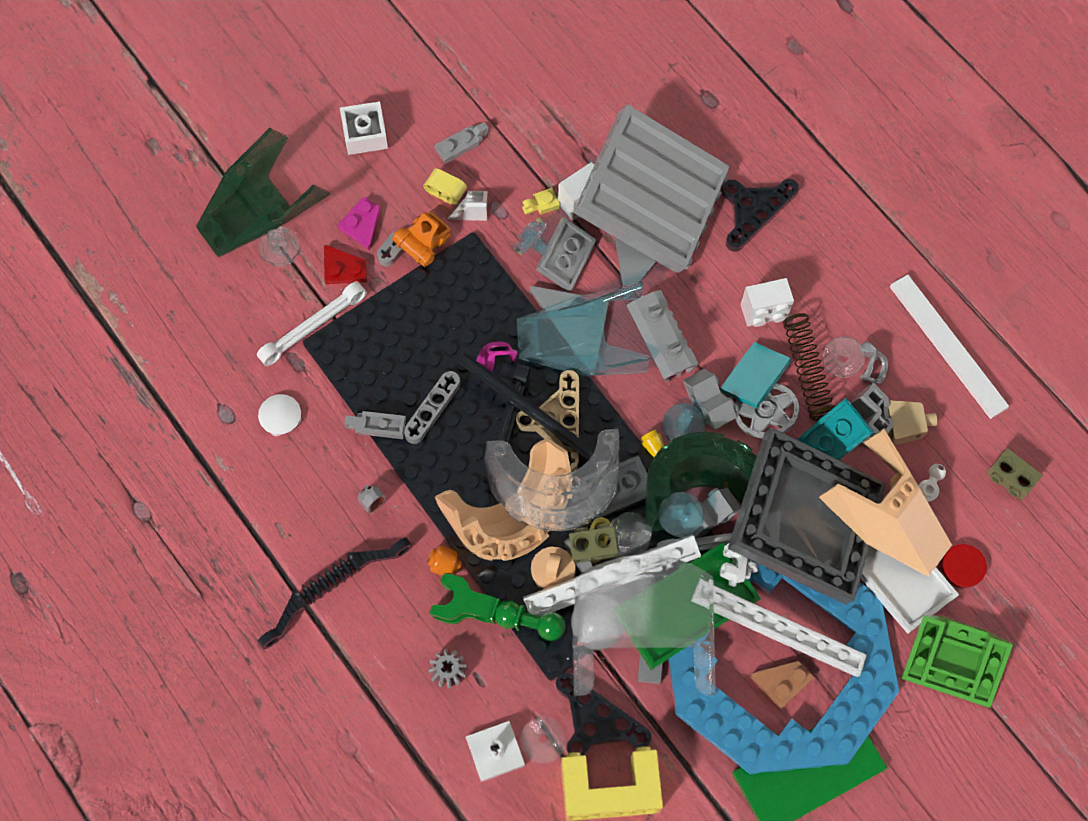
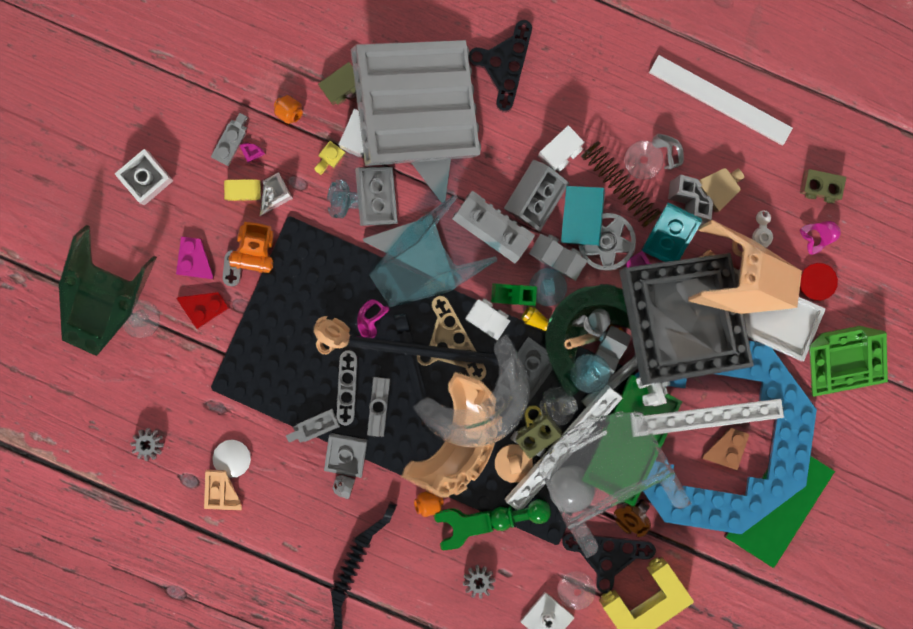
camera: 30 degrees left, 20 degrees up
(210, 348) = (140, 446): none -> light grey gear
(248, 436) = (220, 491): none -> light nougat wing
(272, 351) = (195, 409): white piece -> none
(391, 470) = (345, 455): none -> light grey tile
(443, 449) = (380, 393): none -> light grey piece
(448, 346) = (332, 333): none -> light nougat tile
(474, 161) = (251, 151): none -> dark pink tile
(530, 142) = (288, 109): none -> orange head
(587, 145) = (339, 84): none -> olive brick
(608, 409) = (488, 319): none -> white brick
(645, 691) = (633, 518): none -> reddish brown tile
(646, 411) = (514, 294): none -> green brick
(690, 481) = (580, 340): none -> light nougat piece
(716, 476) = (598, 320): none -> light grey piece
(720, 334) = (536, 195): none -> light grey slope
(998, 521) = (828, 232): none -> dark pink piece

